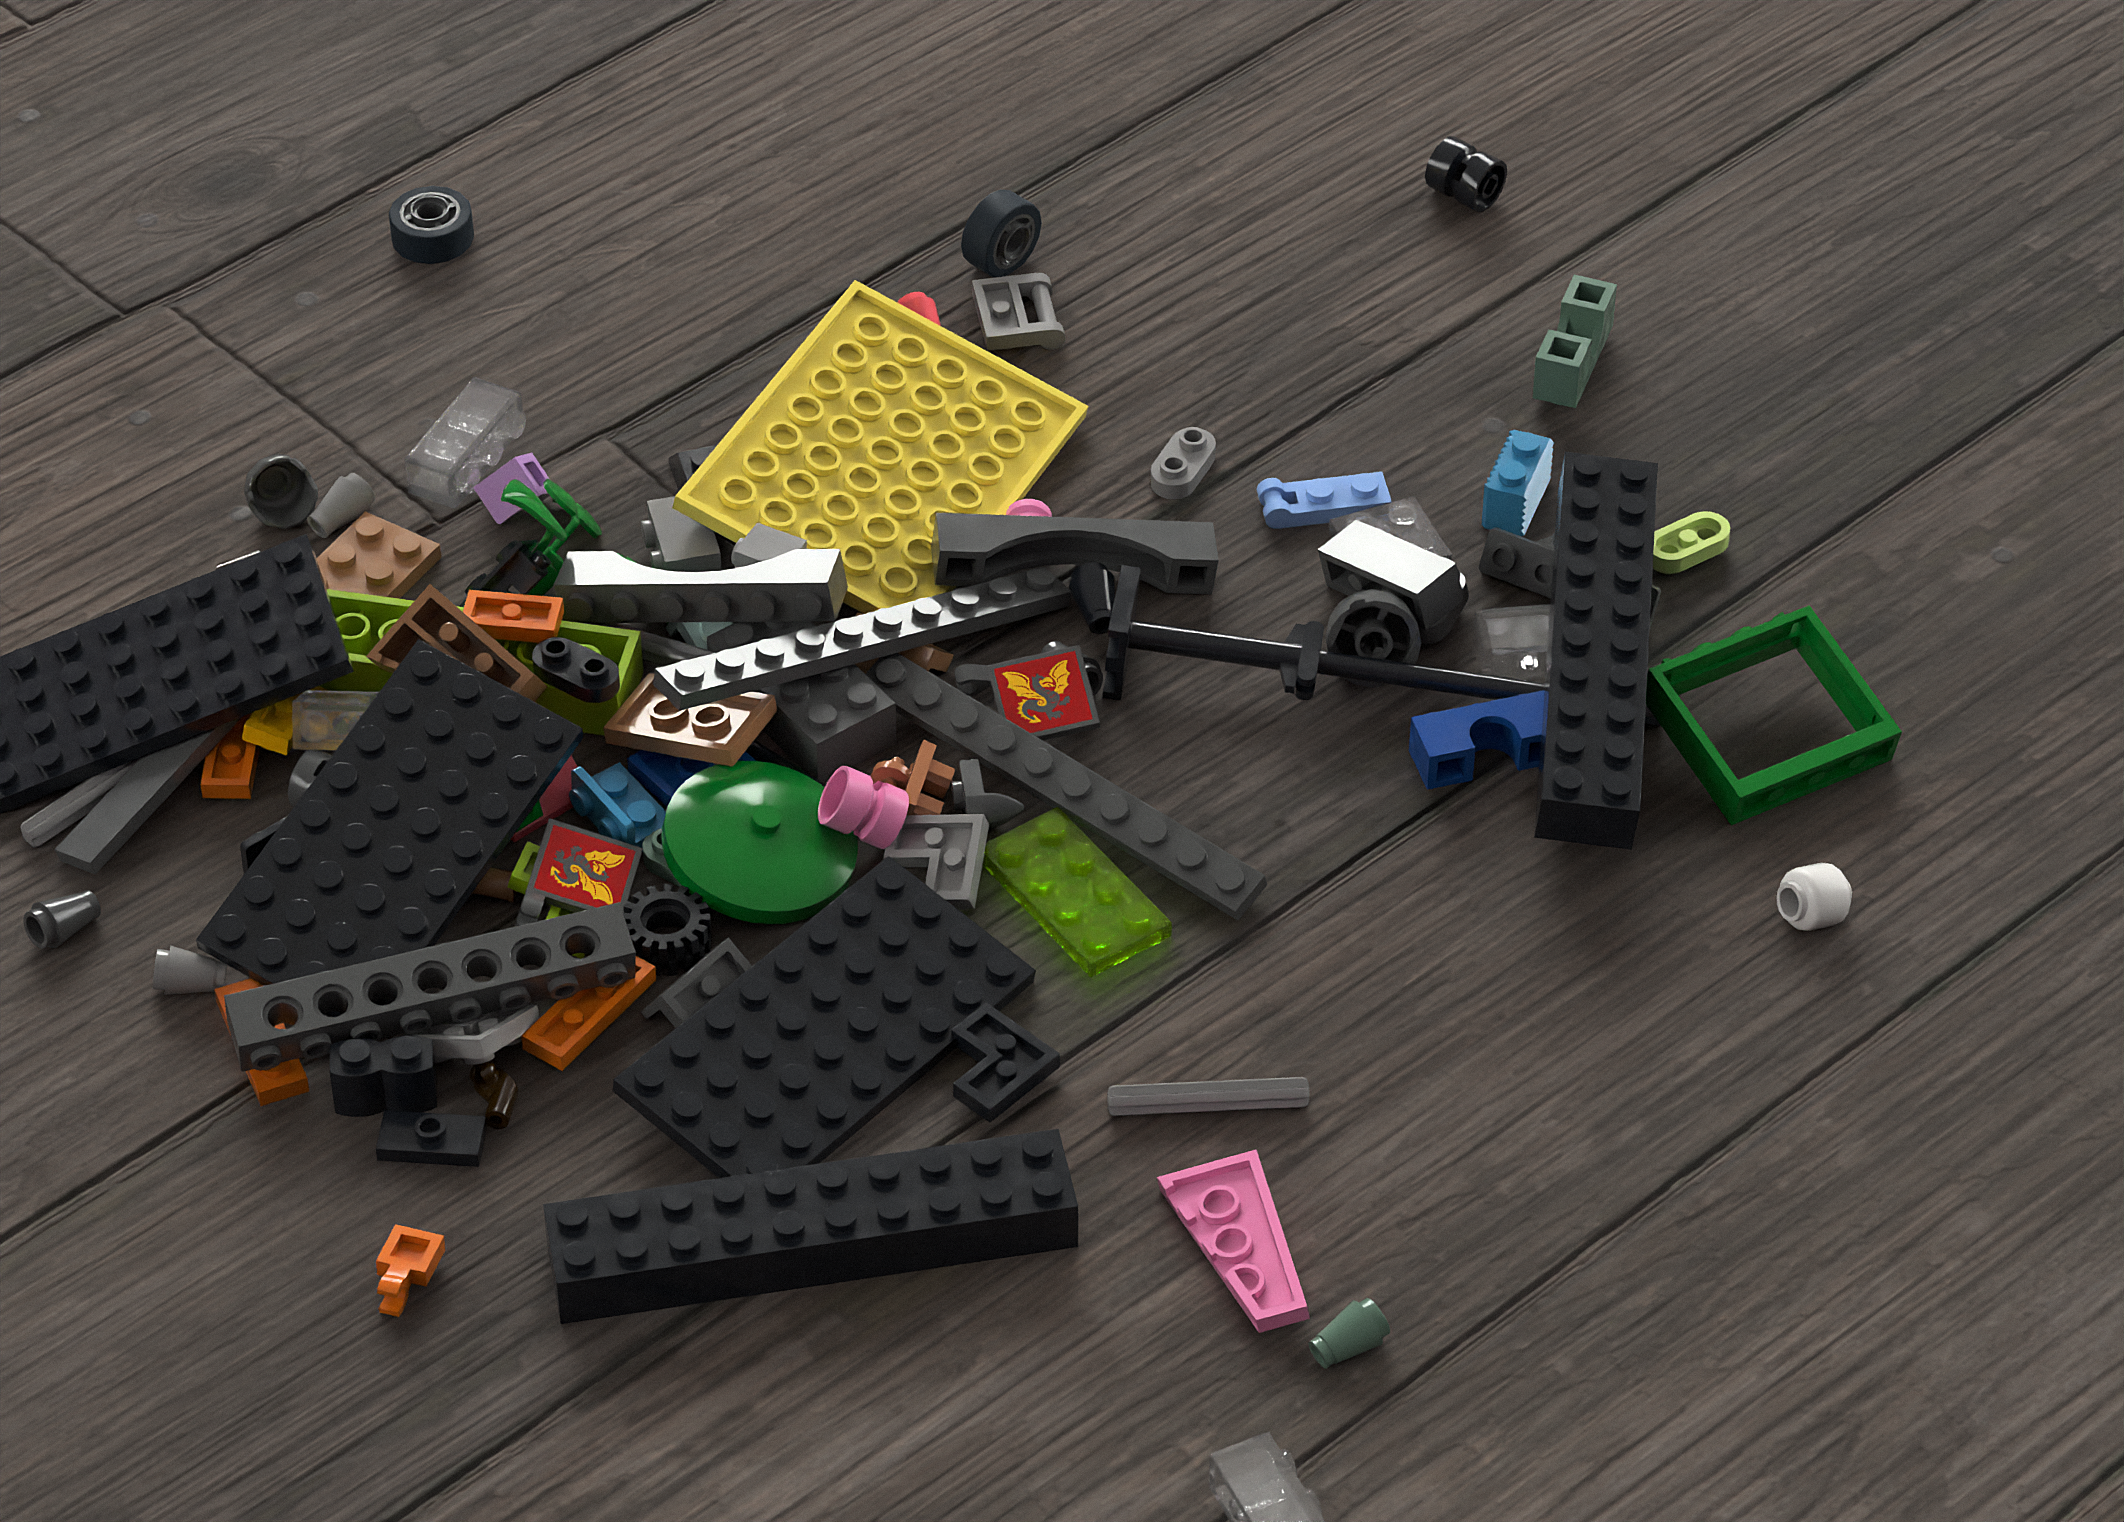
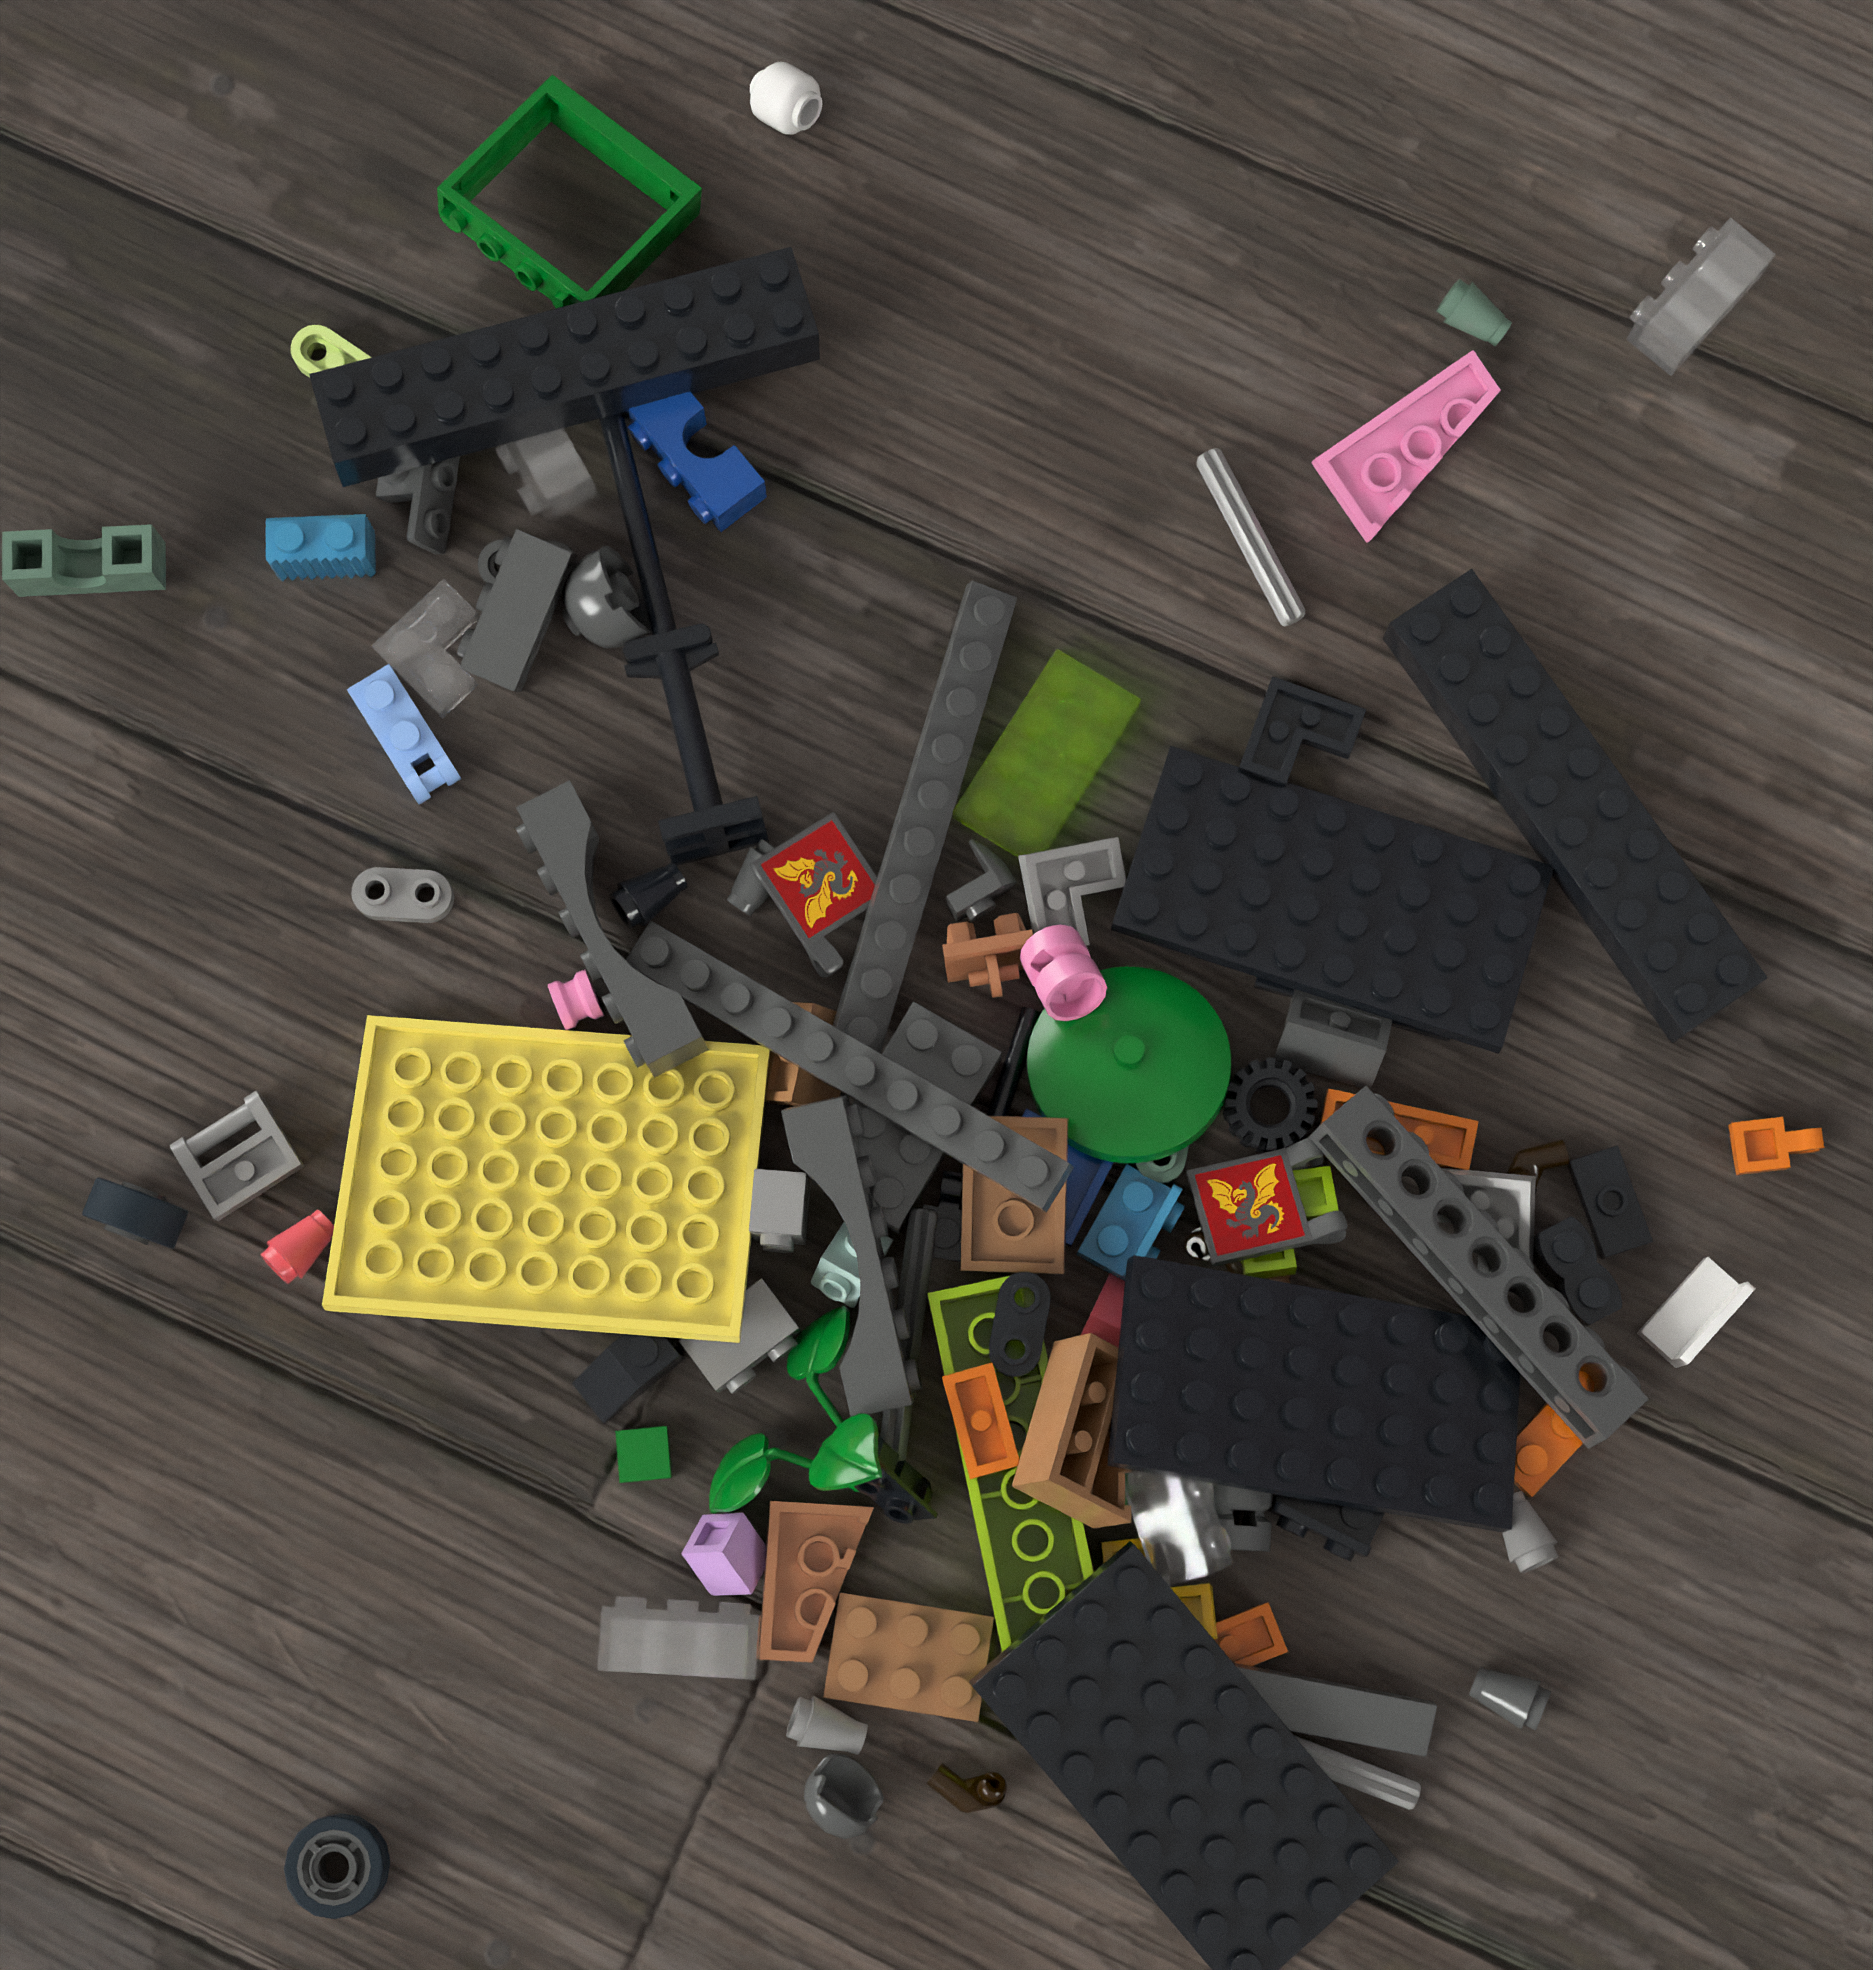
camera: 110 degrees left, 35 degrees up
(294, 1158) = (1694, 1313): none -> white panel
(464, 524) = (804, 1570): none -> nougat wing
(627, 472) = (643, 1454): none -> green tile

